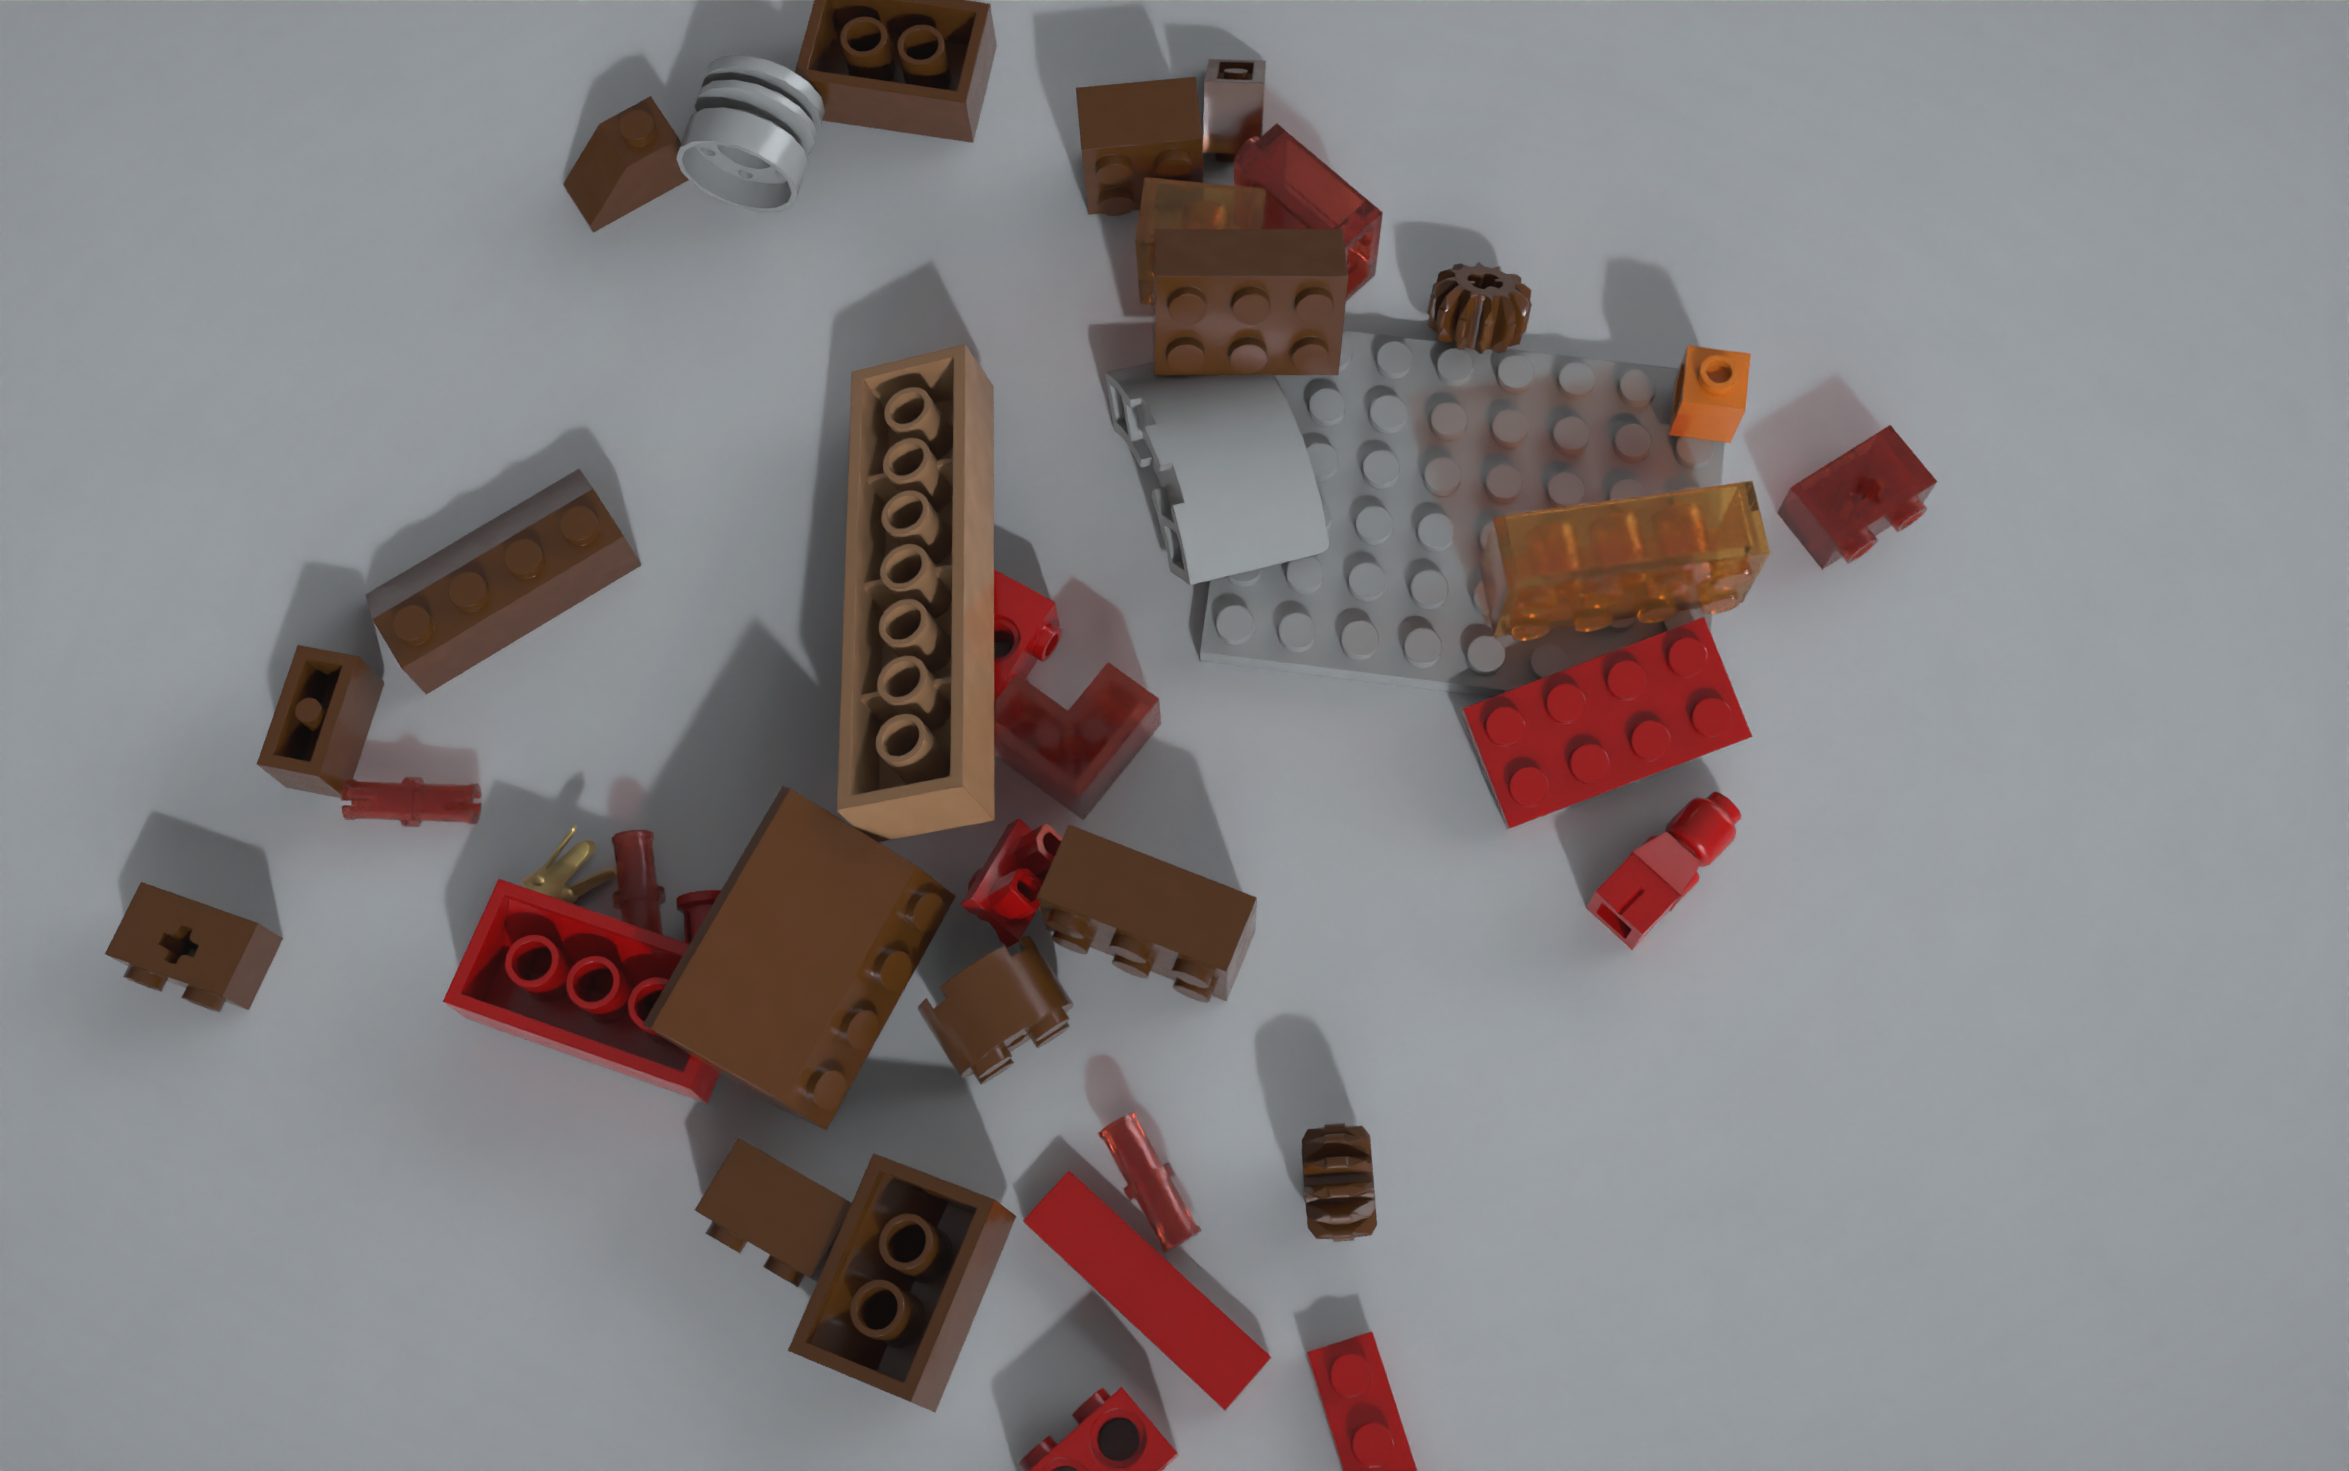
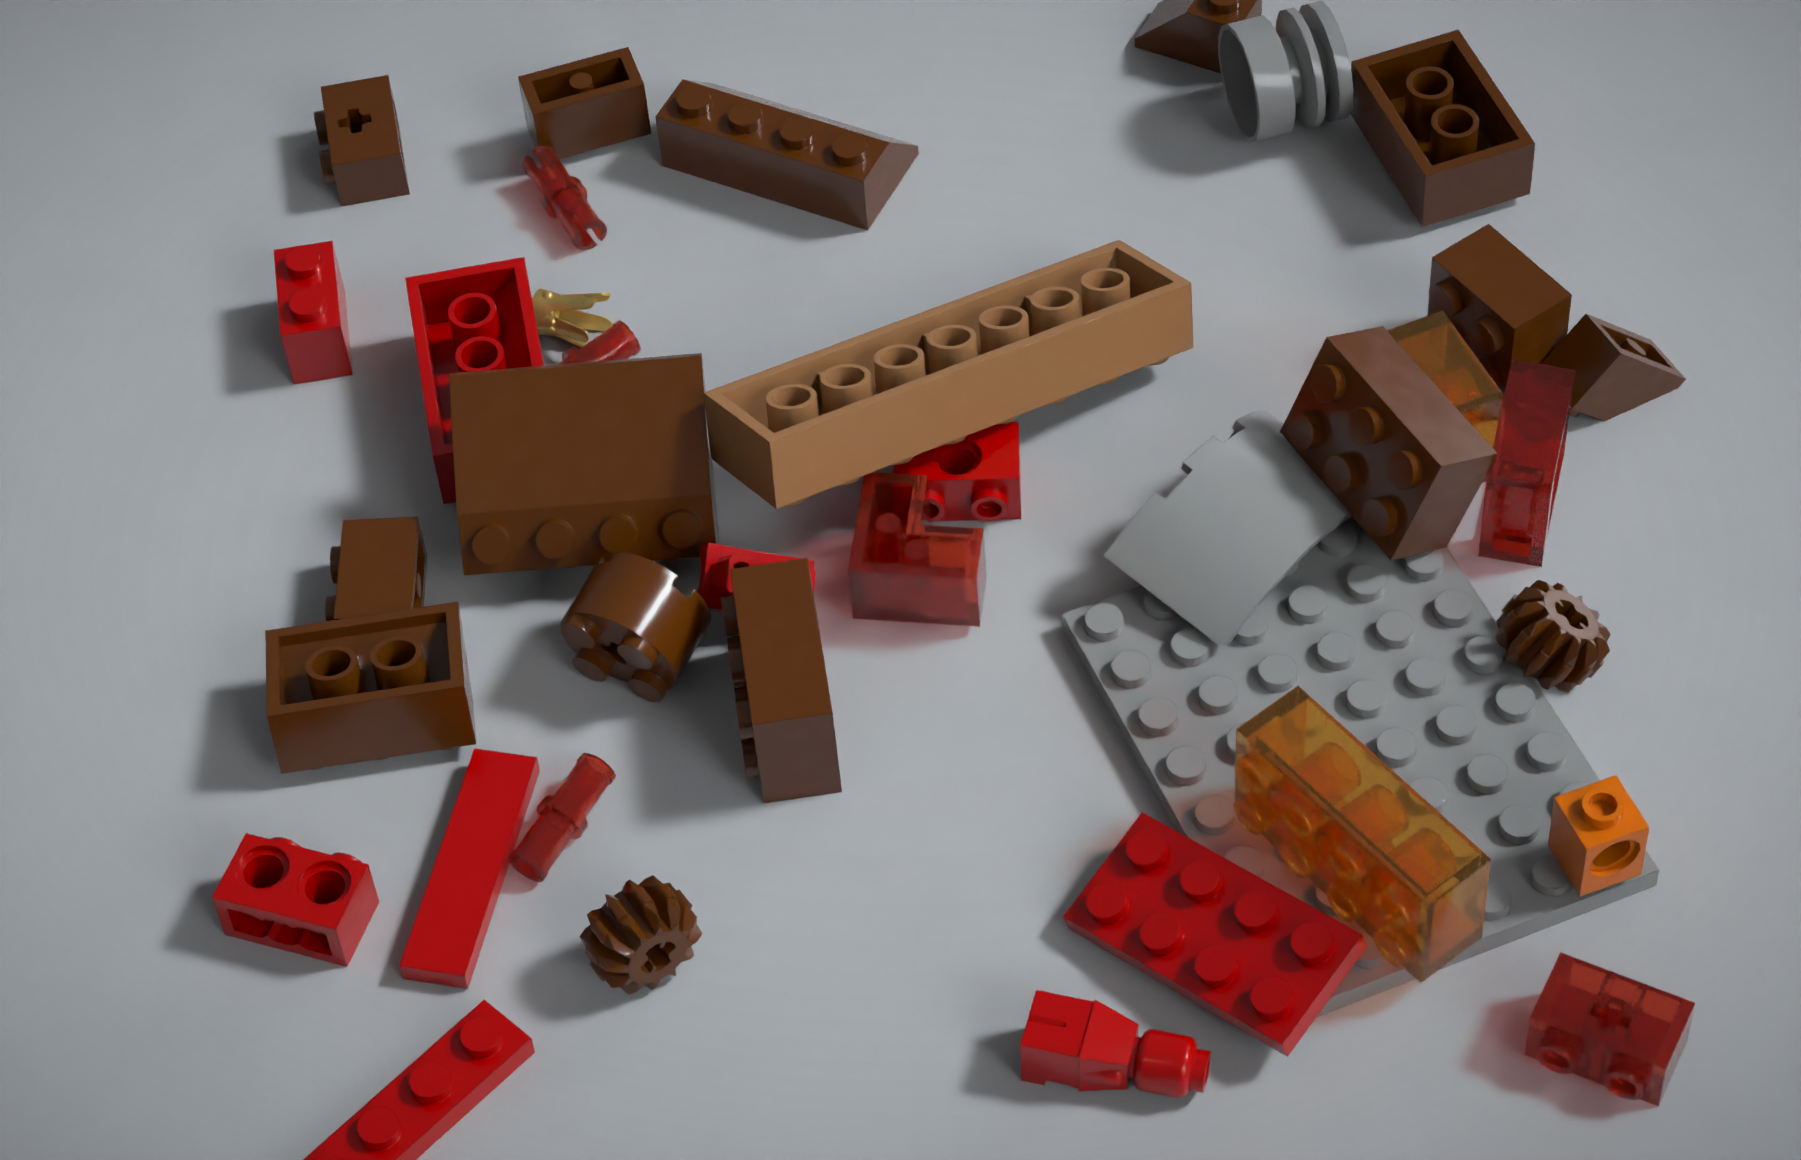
camera: 60 degrees right, 20 degrees down
(390, 1106) = (312, 312): none -> red brick

